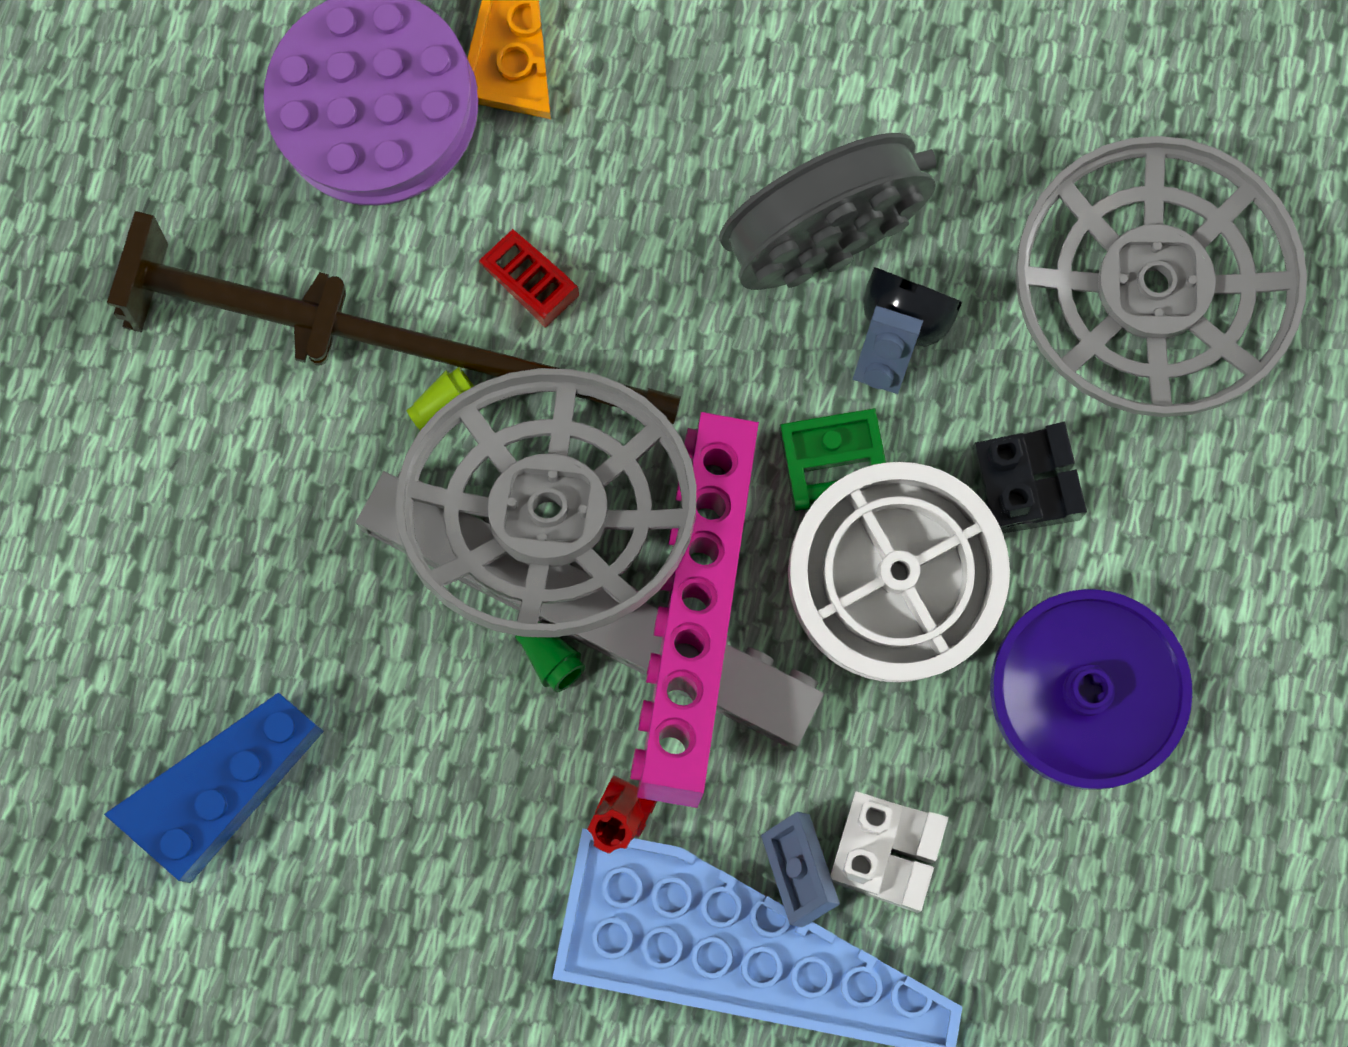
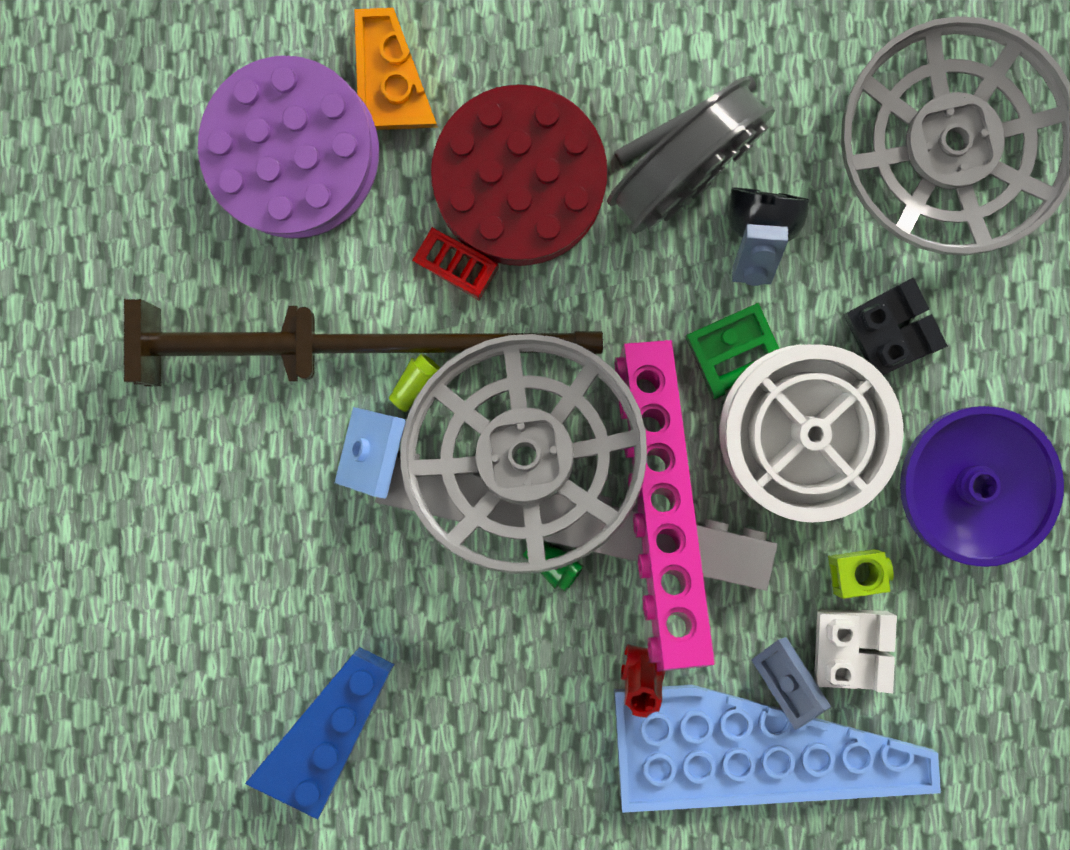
camera: 15 degrees left, 10 degrees up
(366, 463) = (370, 452): none -> light blue plate
(629, 193) = (519, 174): none -> dark red wheel
(898, 767) = (843, 573): none -> lime brick

